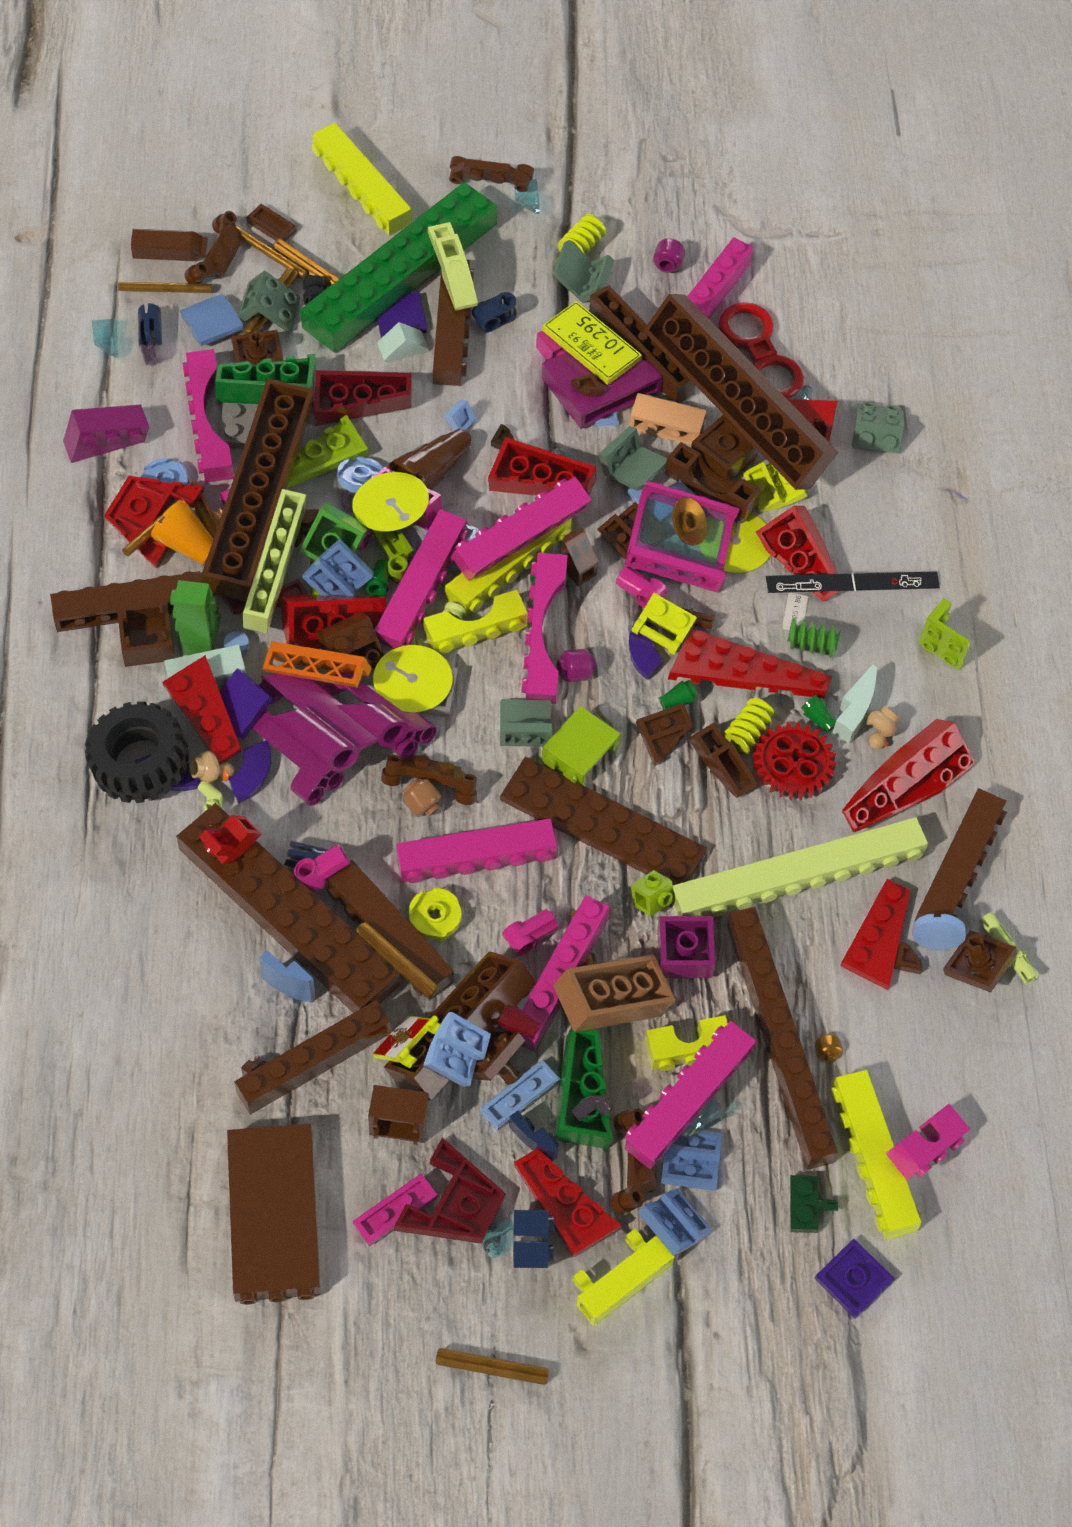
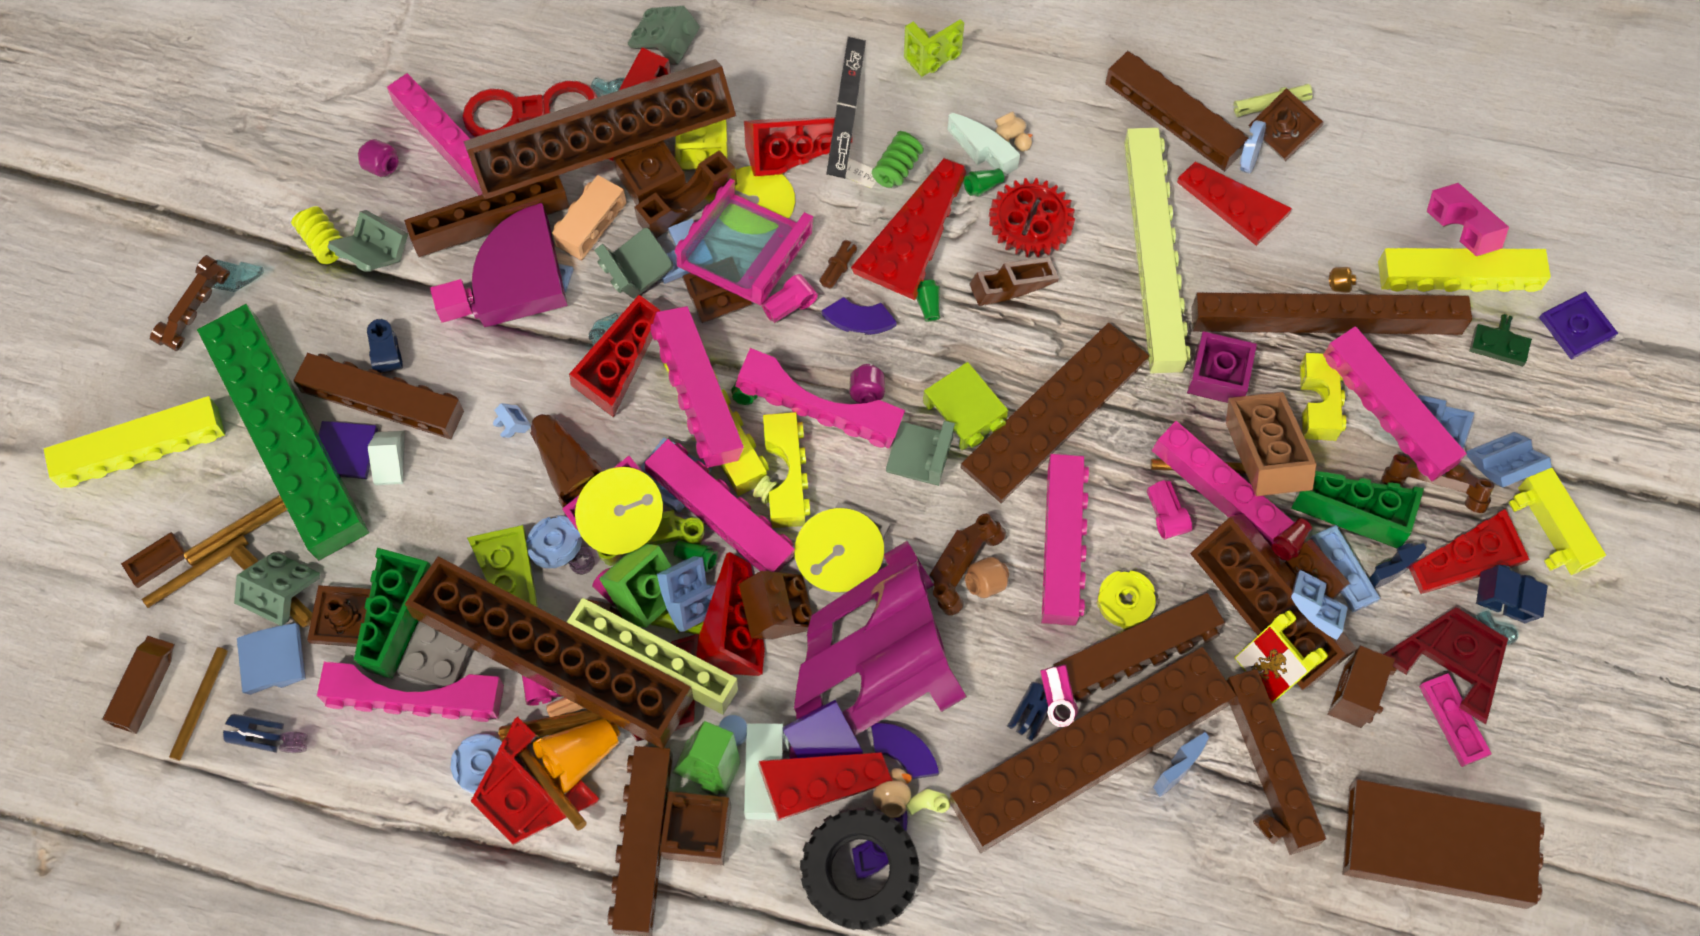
camera: 70 degrees left, 5 degrees up
(104, 430) = (392, 818): magenta wedge -> none
(106, 336) = (245, 790): clear light blue slope -> none
(221, 251) = (173, 623): reddish brown plate -> none
(231, 840) = (1016, 781): red brick -> none
(313, 286) = (279, 532): black wheel -> none
(315, 659) = (795, 637): orange fence -> none
(359, 394) = (446, 512): dark red wedge -> none
(397, 960) = (1186, 645): pearl gold axle -> none
(454, 266) = (318, 363): yellowish green slope -> none
(492, 1366) = (1630, 668): pearl gold axle -> none
(500, 435) = (553, 385): dark brown tile -> none
(581, 558) = (735, 344): reddish brown slope -> none
(587, 385) = (529, 276): reddish brown tile -> none
(592, 342) = (473, 257): neon yellow tile -> none
(592, 1103) = (1392, 490): clear purple arm -> none
(652, 893) = (1154, 382): lime brick -> none
(664, 731) = (965, 324): reddish brown wing -> none
(668, 617) = (839, 280): neon yellow plate -> none
(689, 521) = (732, 228): pearl gold dish -> none
(749, 725) = (983, 246): neon yellow piece -> none
(907, 959) = (1265, 185): reddish brown tile -> none
(911, 775) = (1072, 120): red wedge -> none

